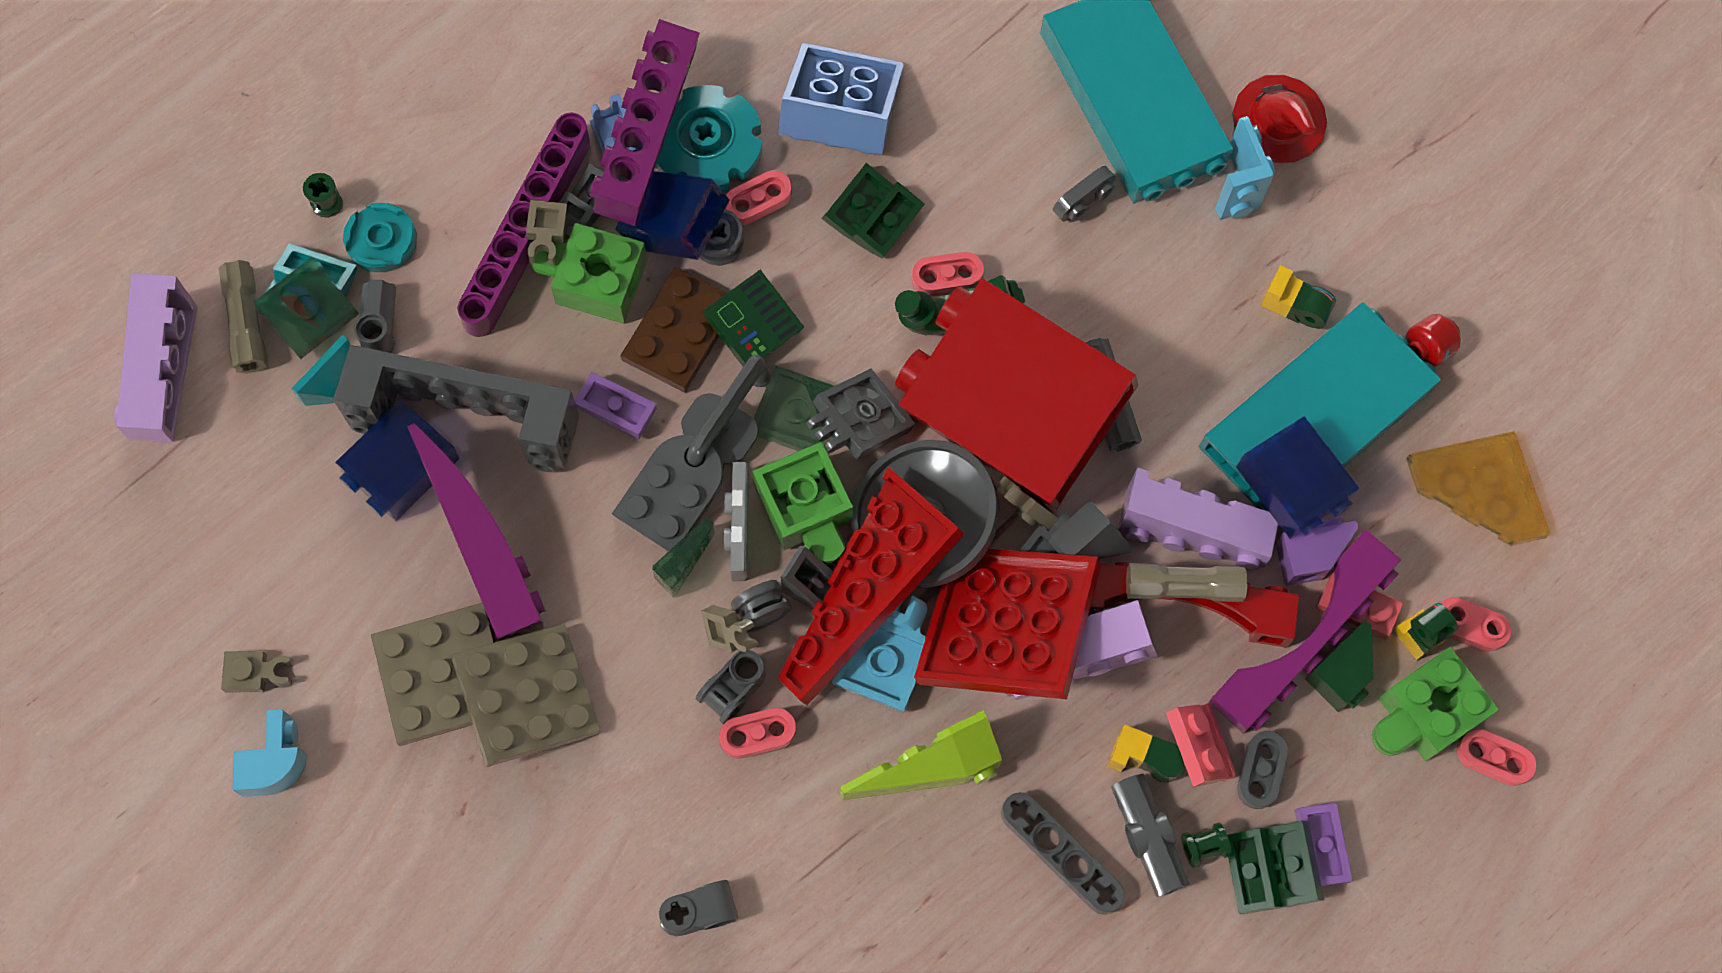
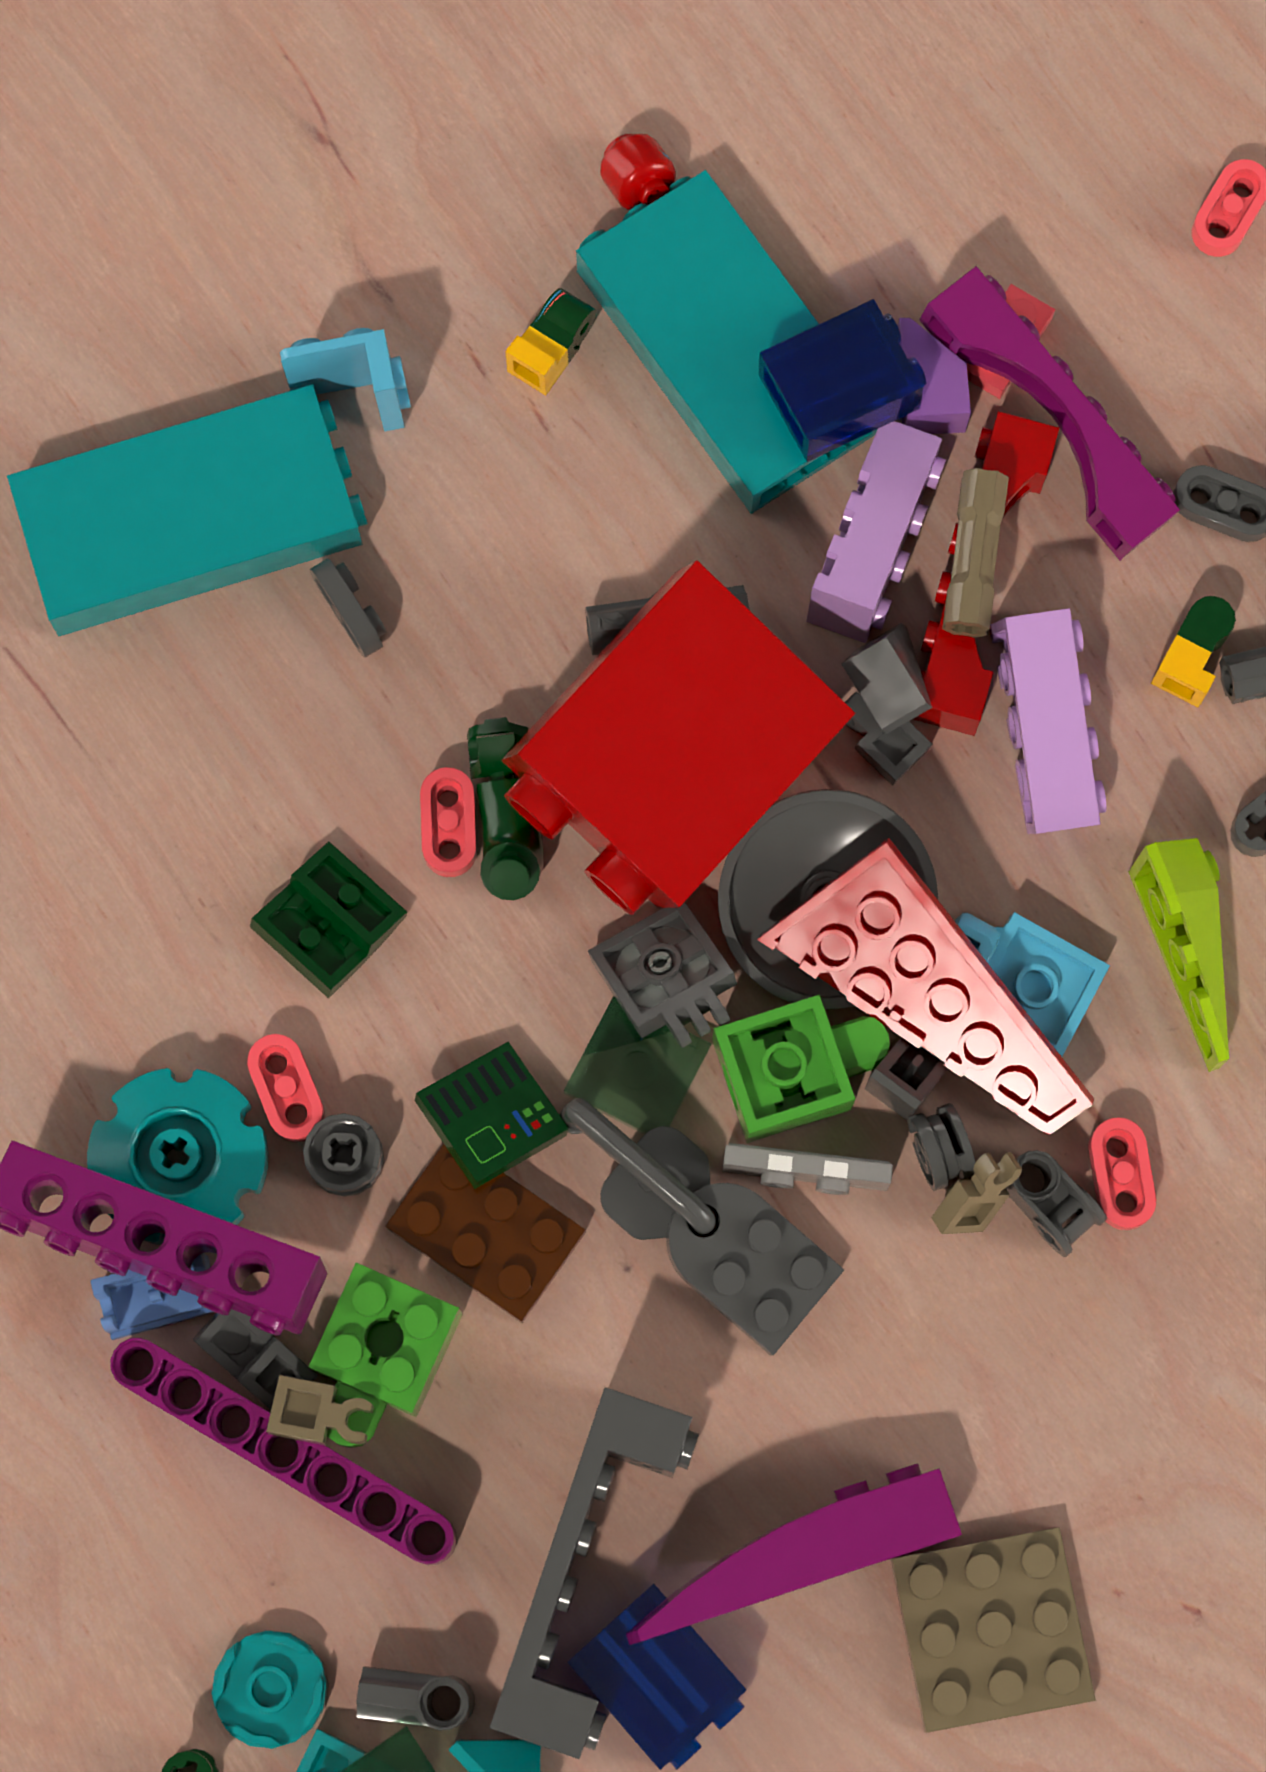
camera: 80 degrees left, 5 degrees up
(525, 695) = (1043, 1502): dark tan plate -> none
(615, 405) = (602, 1335): medium lavender plate -> none
(677, 215) = (318, 1203): clear blue brick -> none
(678, 563) = (863, 1262): clear green slope -> none
(840, 99) = (134, 942): medium blue slope -> none
(1011, 624) = (1016, 796): red plate -> none
(1030, 507) = (834, 756): dark tan plate -> none
(1201, 744) = (1189, 575): coral plate -> none
(1285, 113) = (250, 311): red piece -> none
(1346, 670) = (1102, 366): dark green slope -> none
(1426, 630) = (1059, 259): dark green leg -> none
(1432, 708) = (1149, 286): bright green brick -> none
(1473, 625) = (1046, 200): coral plate -> none
(1484, 485) = (850, 150): clear yellow plate -> none

